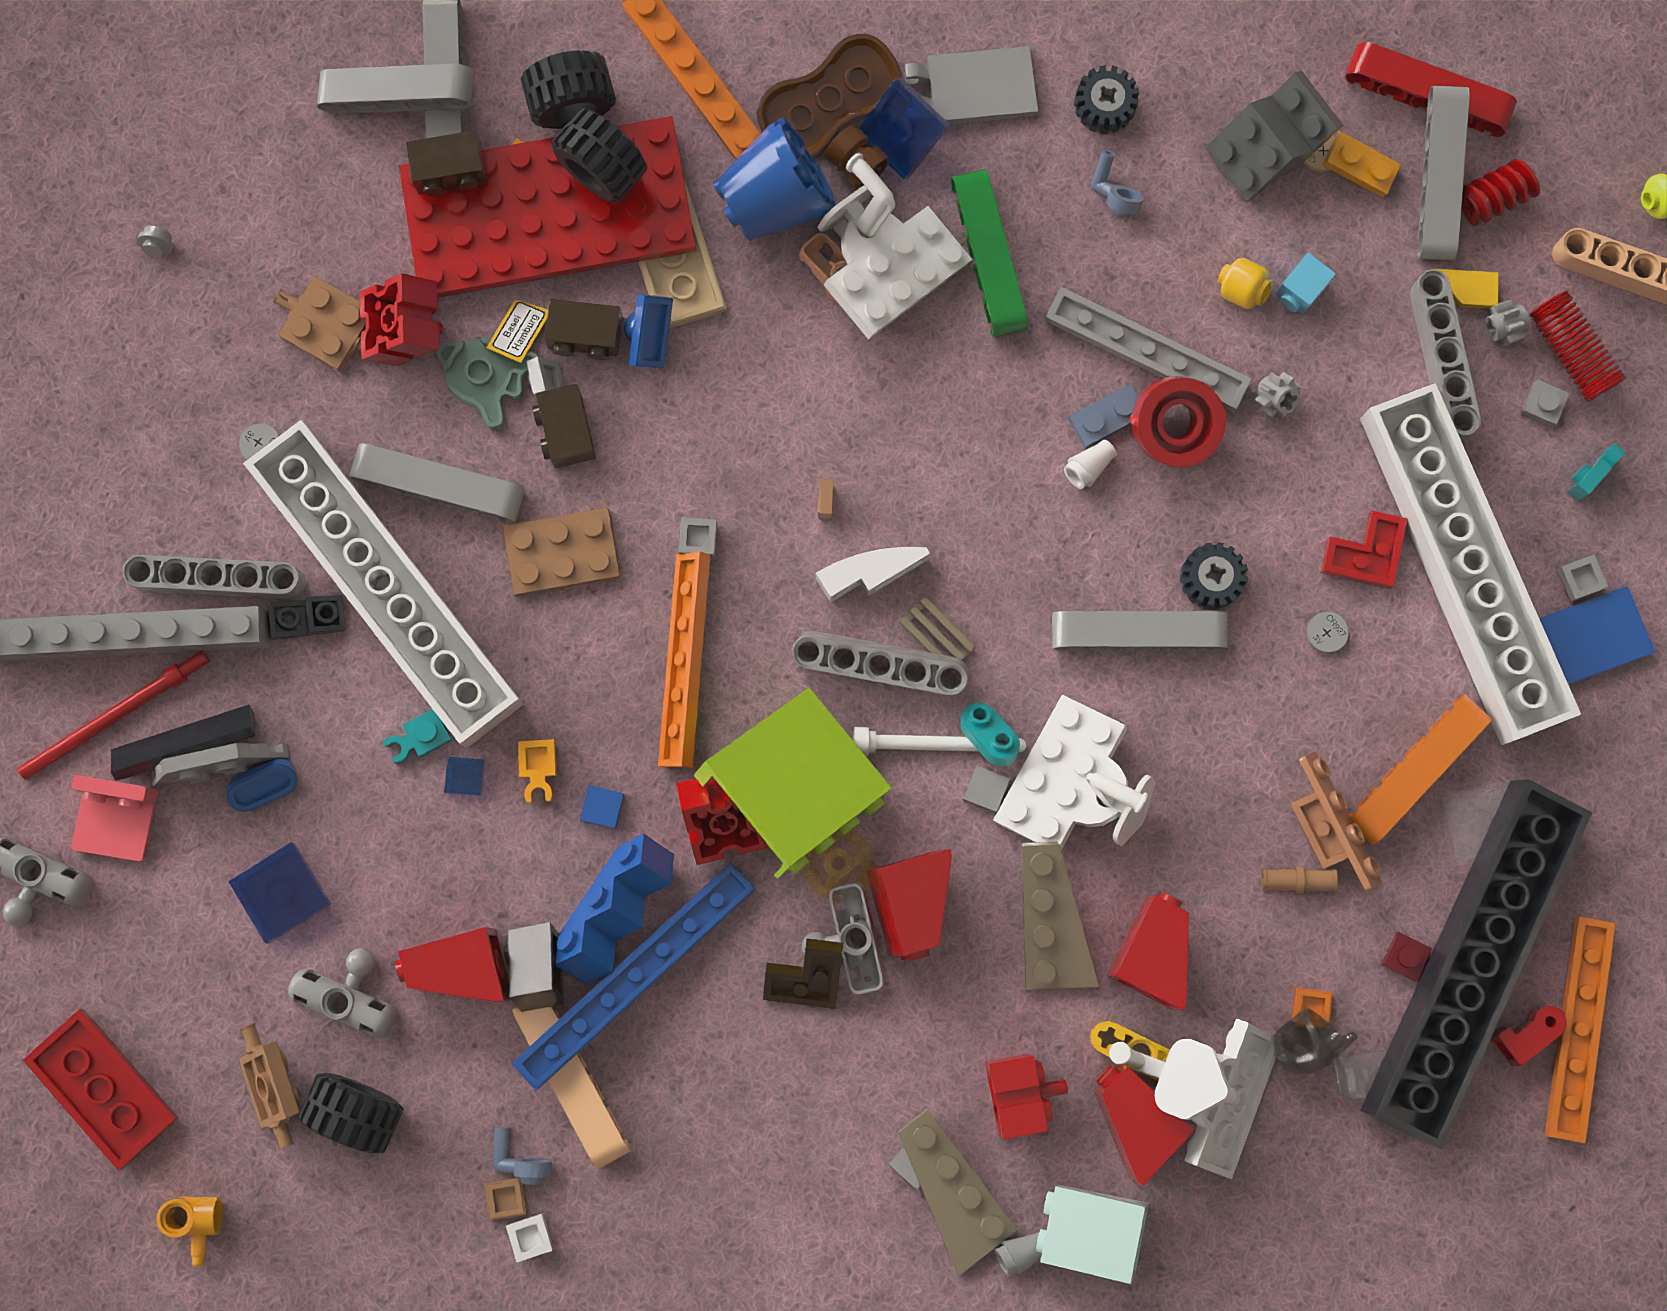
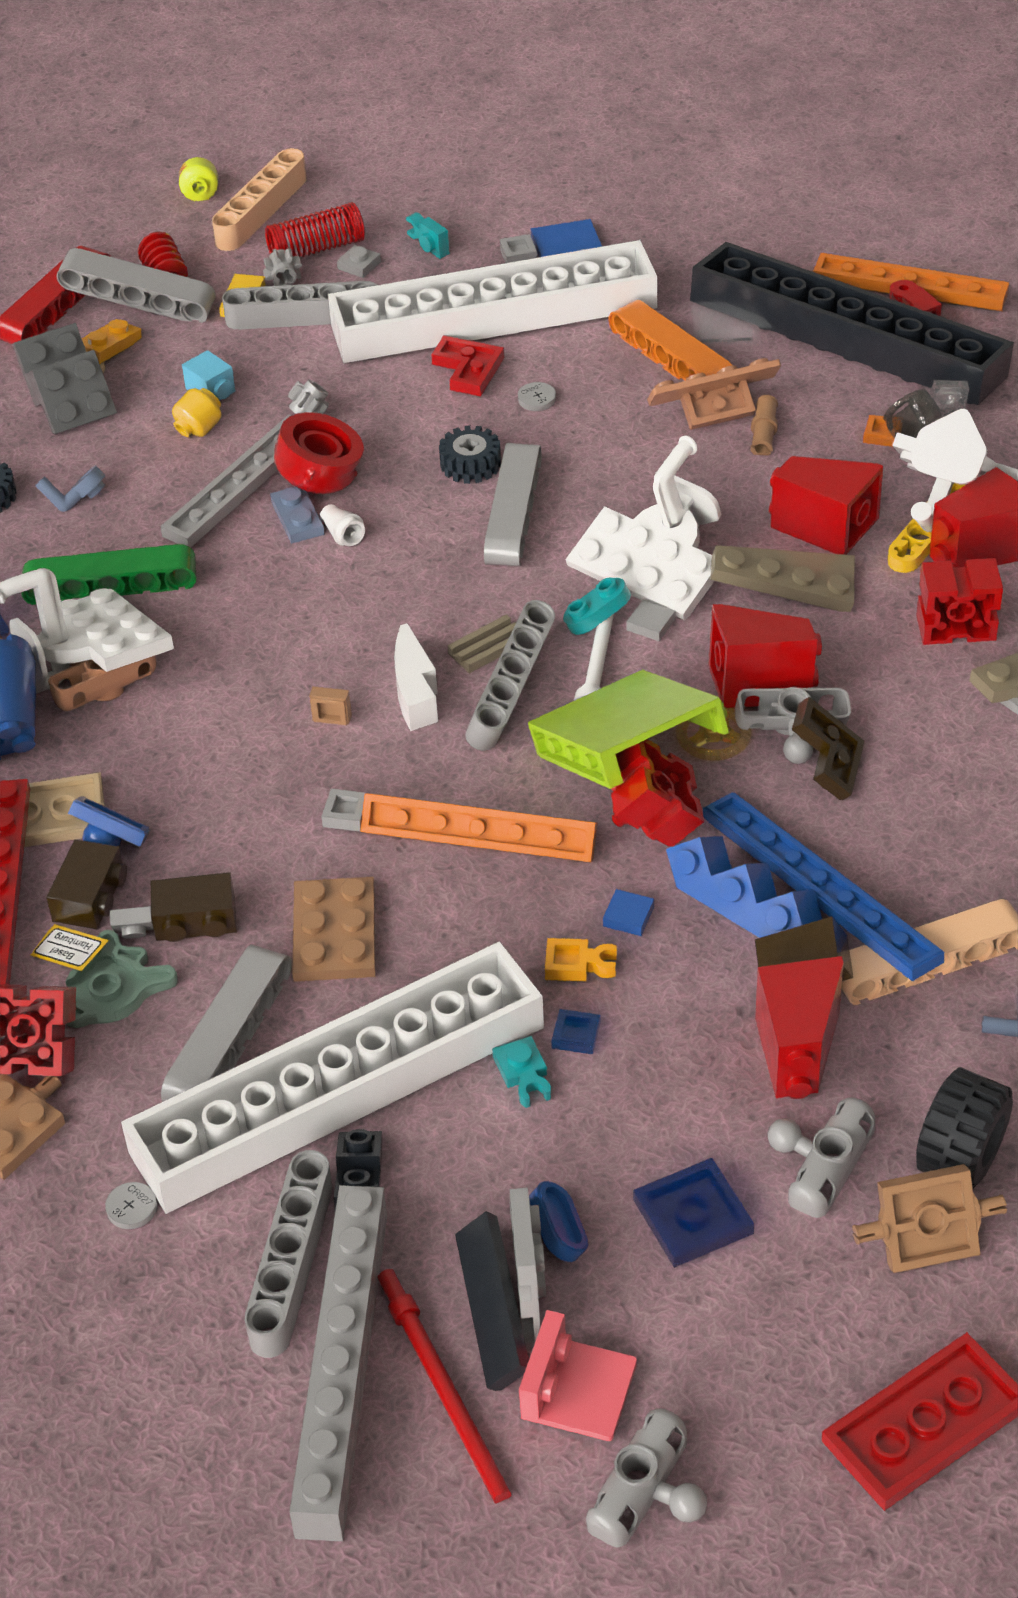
camera: 80 degrees left, 35 degrees down
(1406, 956) = (840, 372): dark red plate -> none

